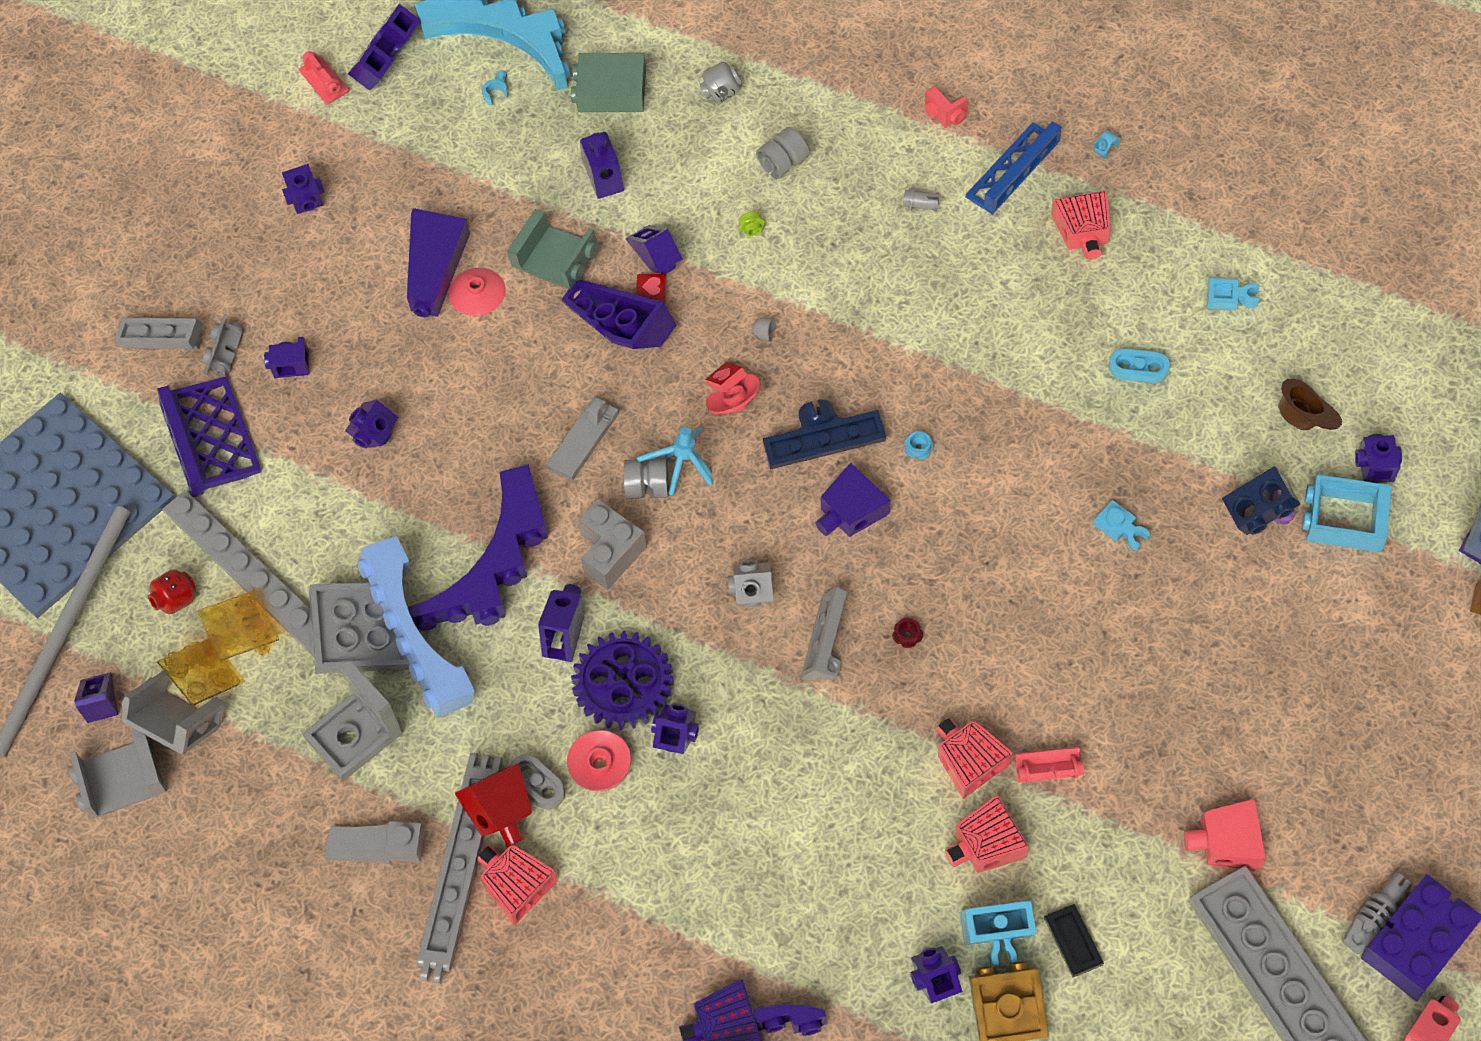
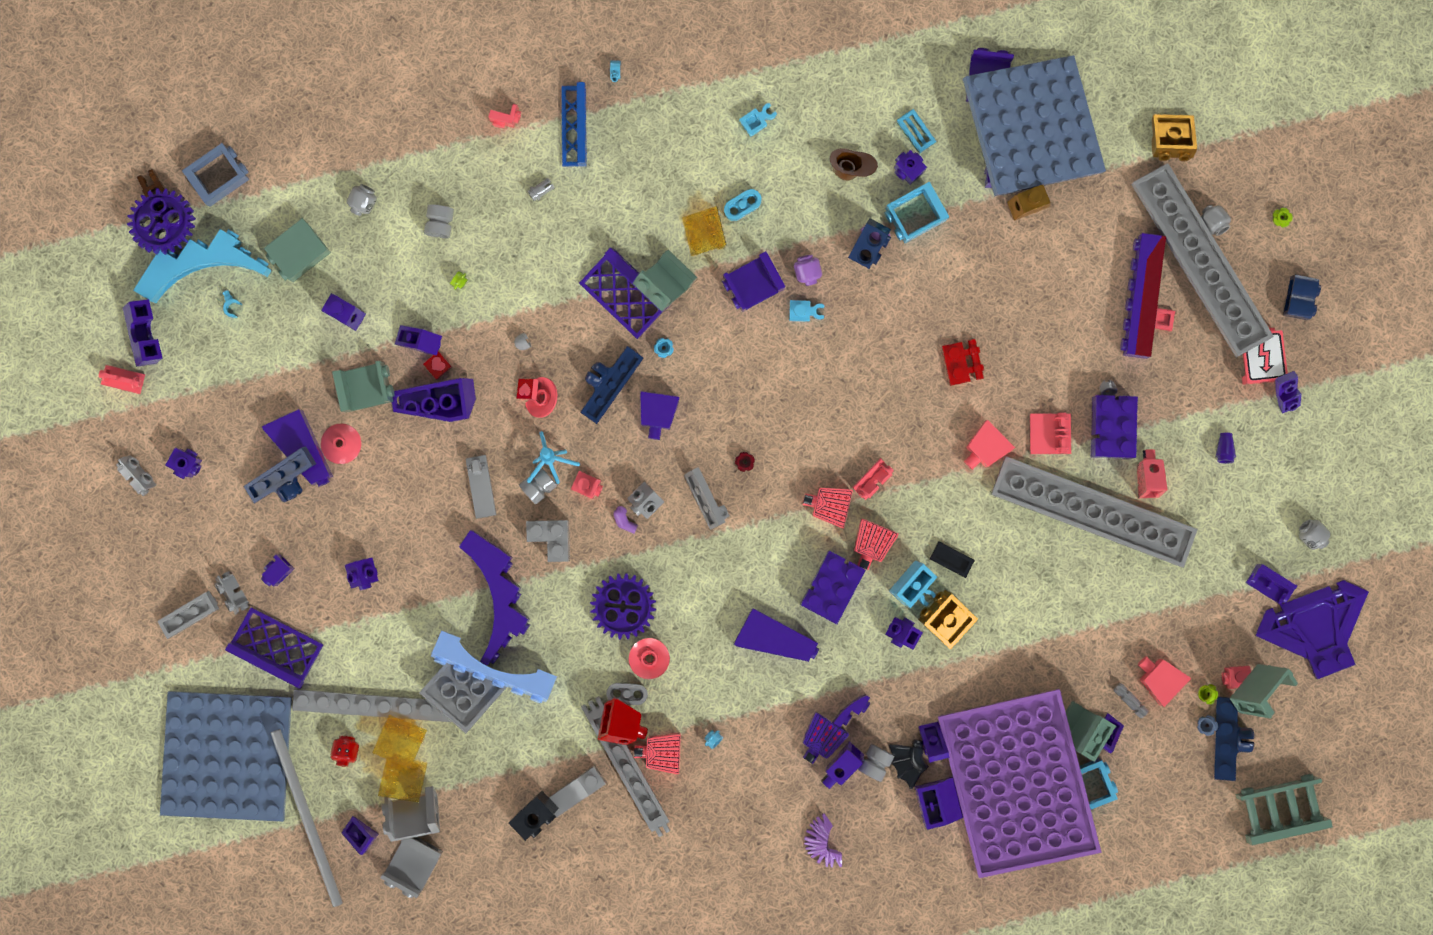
camera: 45 degrees left, 25 degrees up
(246, 163) = (130, 467): none -> light grey hinge
(285, 823) = (524, 823): none -> black brick
(363, 713) = (510, 733): light grey bracket -> none
(384, 268) = (281, 478): none -> dark blue plate
(564, 614) = (570, 607): dark purple torso -> none
(588, 912) = (713, 739): none -> medium azure plate
(674, 728) = (676, 609): dark purple brick -> none
(701, 523) = (587, 485): none -> coral bracket
(705, 591) = (622, 521): none -> medium lavender arm
(766, 851) = (772, 637): none -> dark purple slope
(892, 850) = (833, 587): none -> dark purple piece
(949, 361) = (630, 274): none -> dark purple fence
(979, 376) = (665, 280): none -> sand green panel
(1072, 362) = (704, 231): none -> clear yellow hinge
(1083, 222) = (644, 135): coral torso -> none
(1083, 453) = (753, 282): none -> dark purple panel
(1161, 481) = (807, 269): none -> medium lavender head
(1265, 716) = (956, 362): none -> red plate
(1328, 886) = (1050, 433): none -> coral hinge
(1375, 914) = (1083, 431): light grey hinge -> none
(1418, 455) = (906, 117): none -> medium azure tile
(1454, 882) = (1108, 385): none -> light grey hinge

